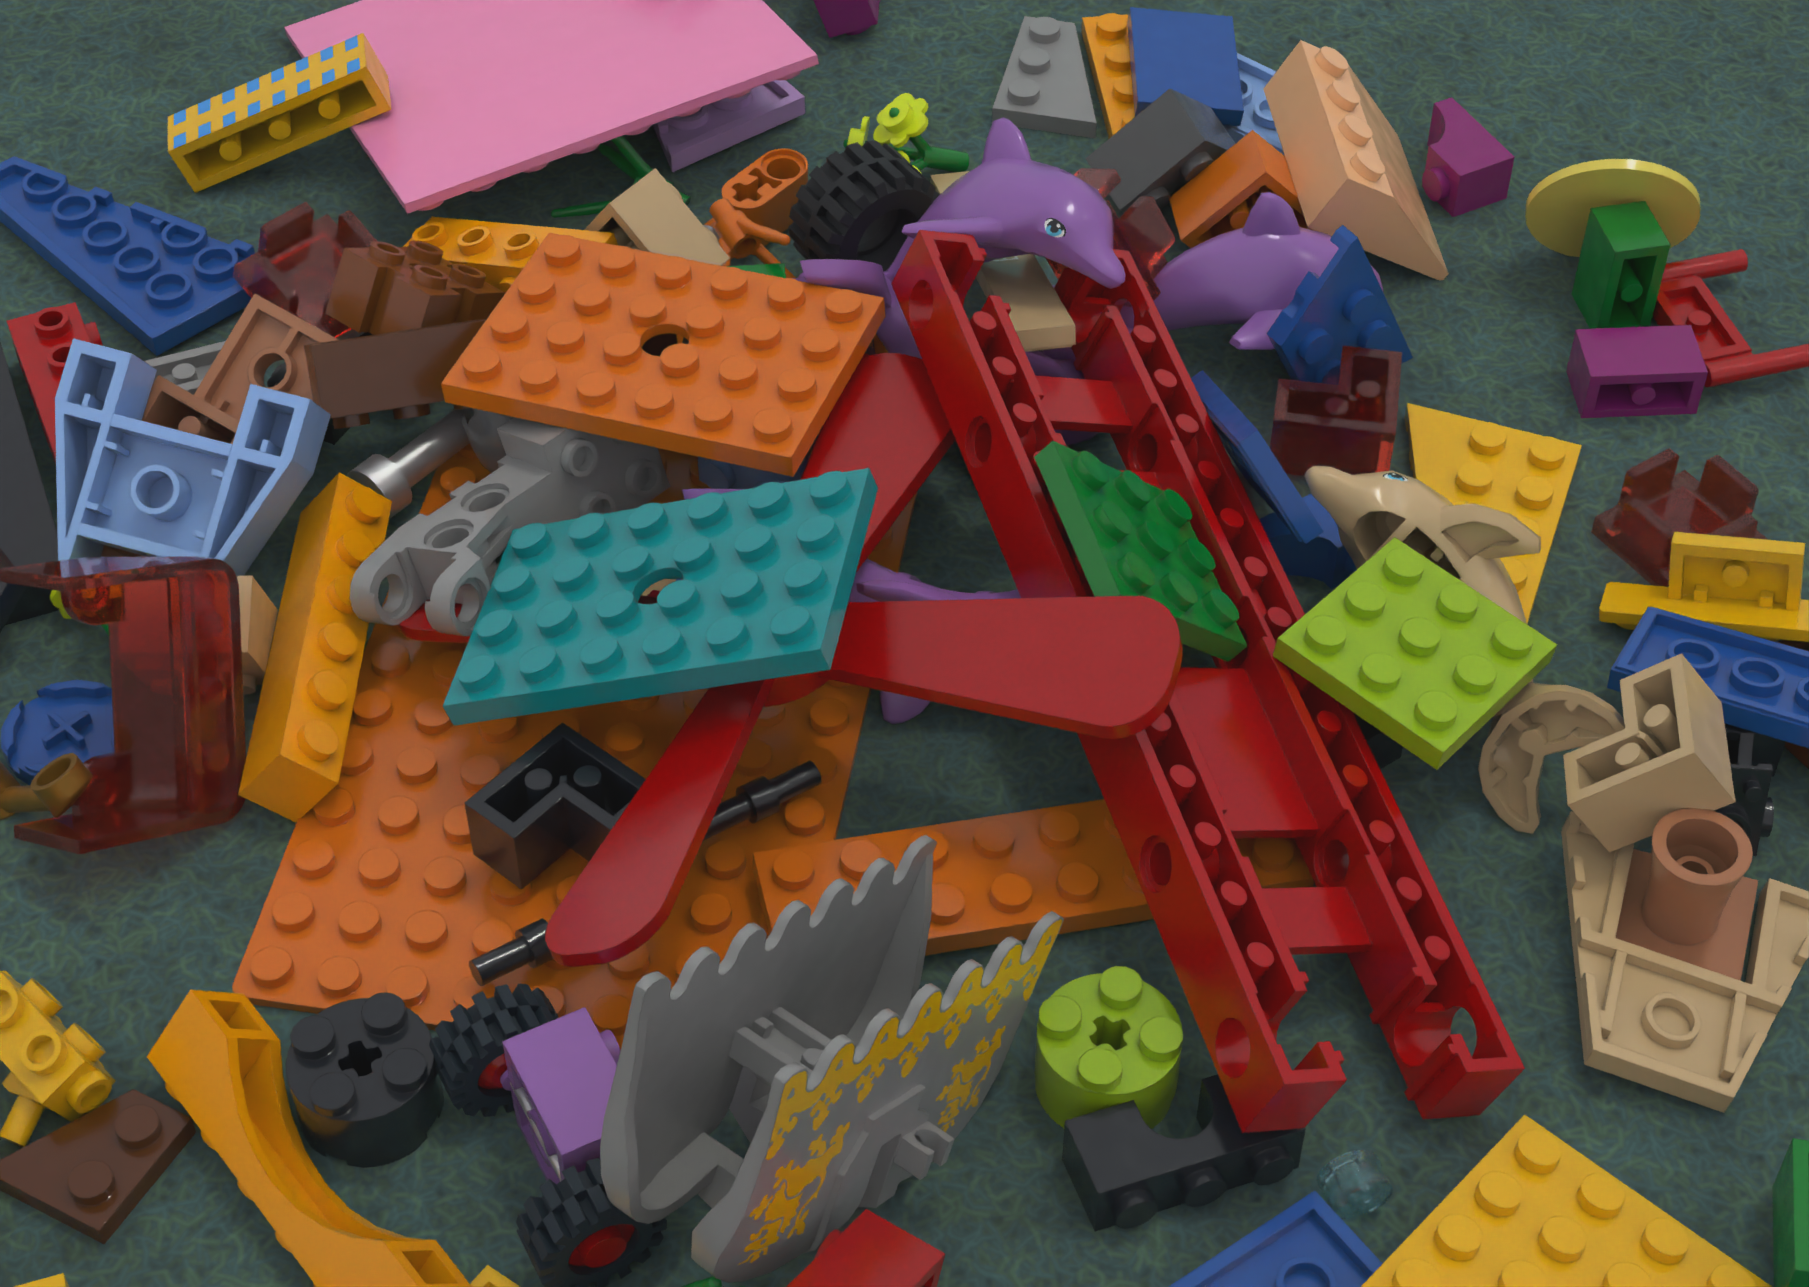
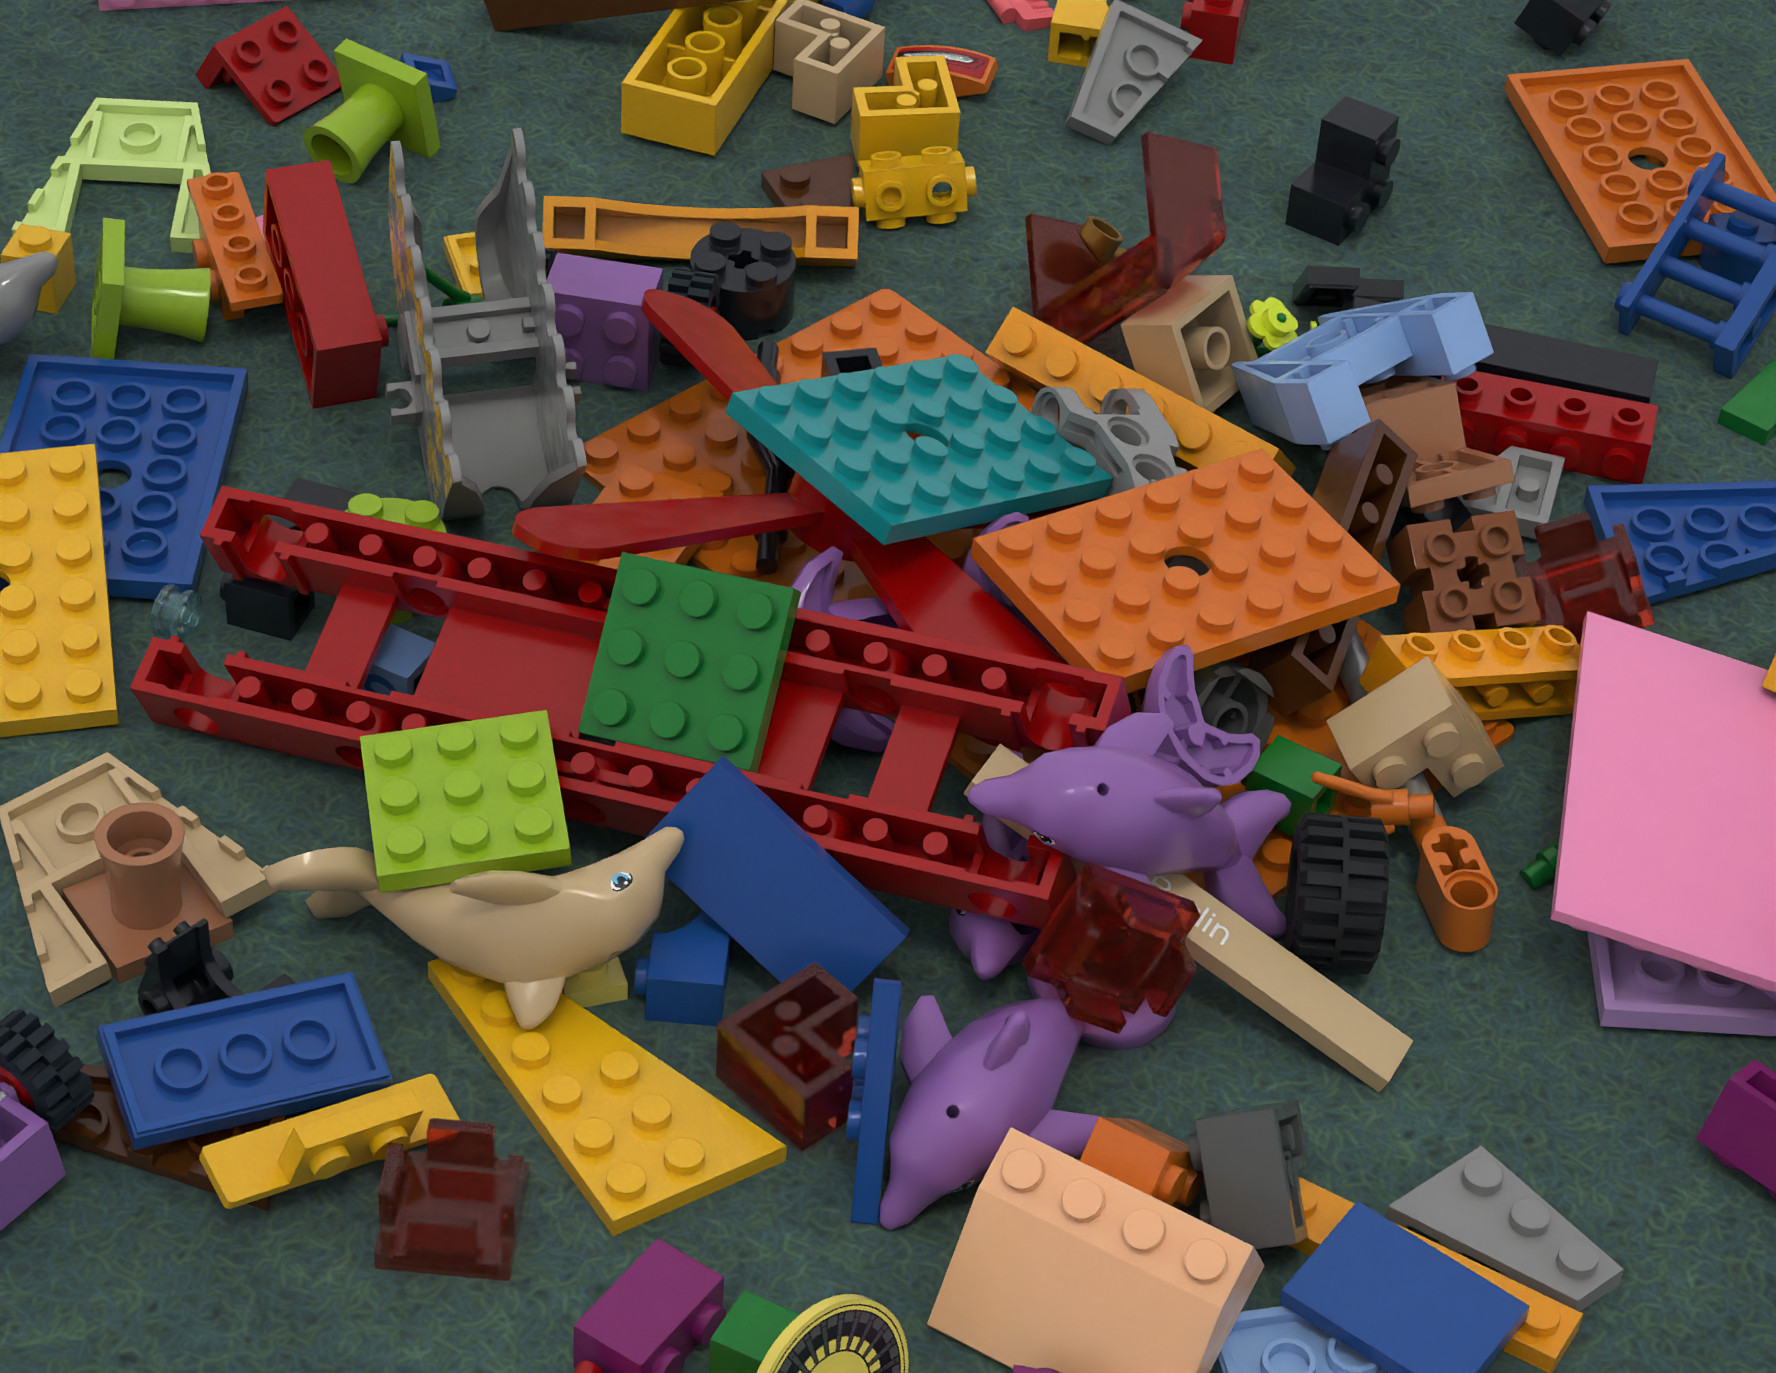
camera: 125 degrees right, 5 degrees down
(905, 121) = (1436, 990): neon yellow plant -> none
(1660, 763) = (226, 866): tan brick -> none

